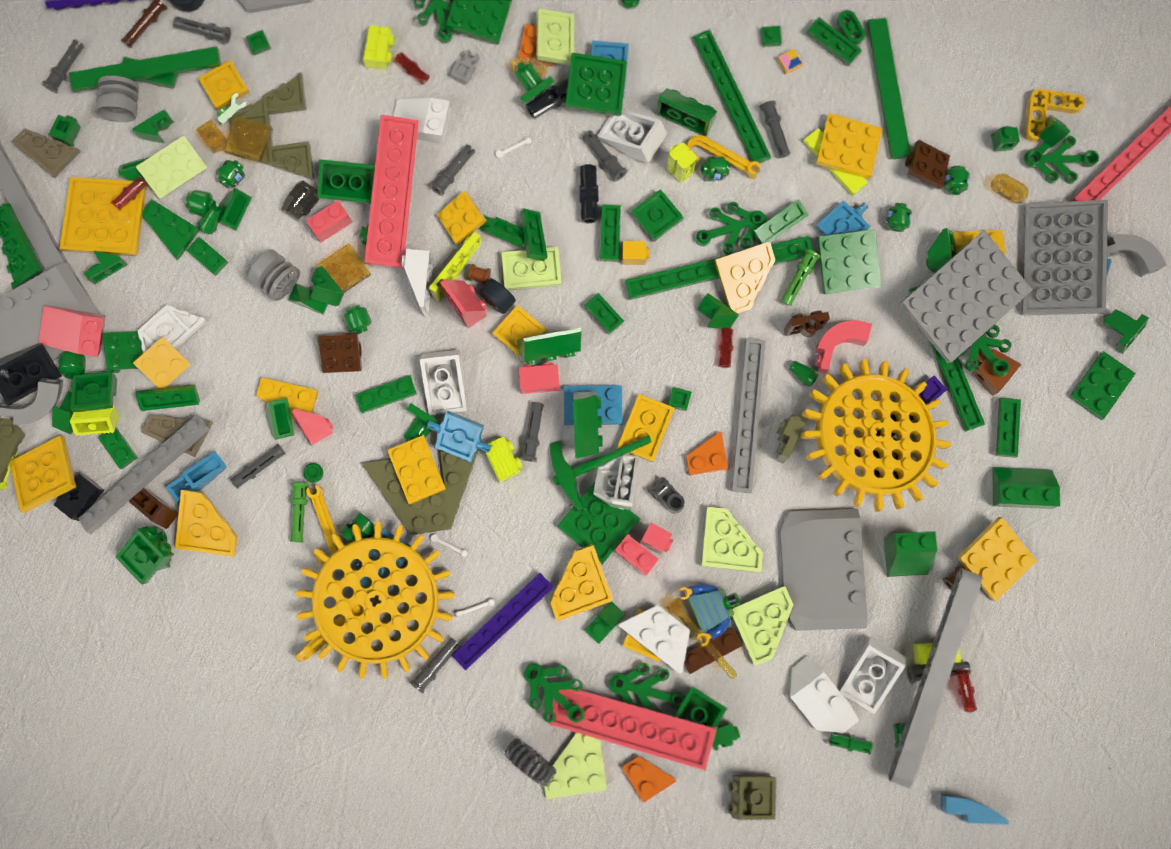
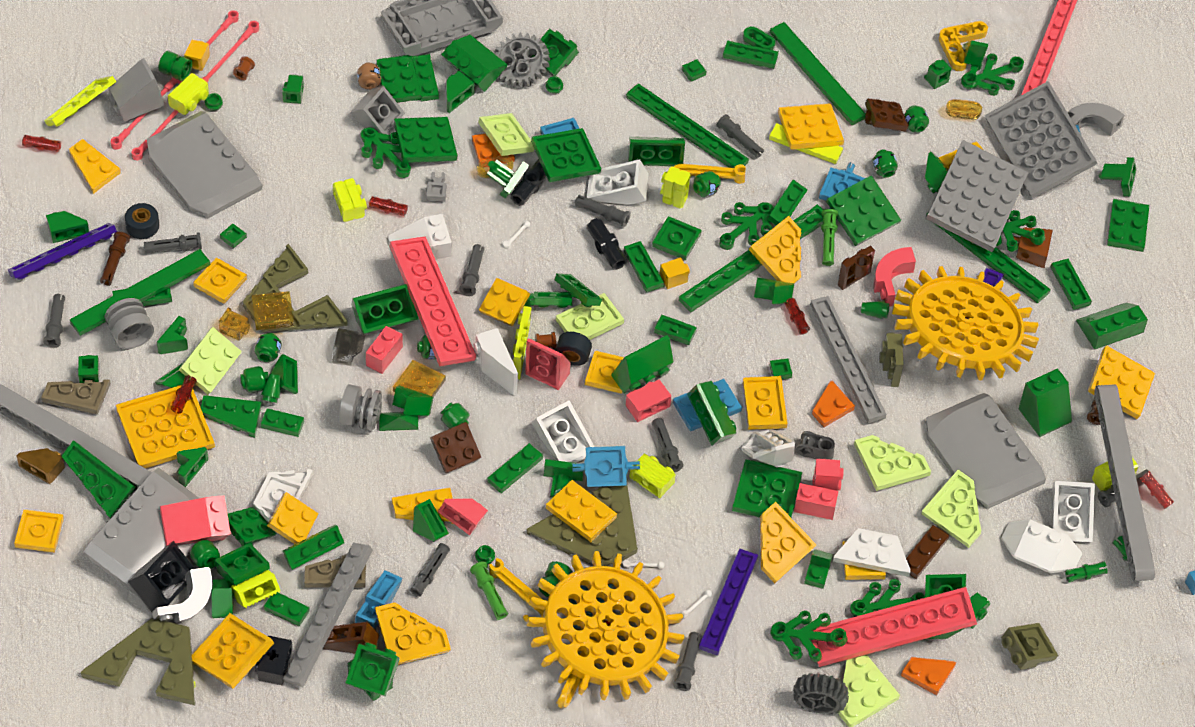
camera: 30 degrees left, 25 degrees down
(225, 113) = (237, 300): plate -> none
(567, 476) = (718, 465): green piece -> none
(676, 608) = (875, 526): clear yellow piece -> none
(711, 608) = (904, 513): torso -> none
(790, 61) = (721, 83): tile -> none

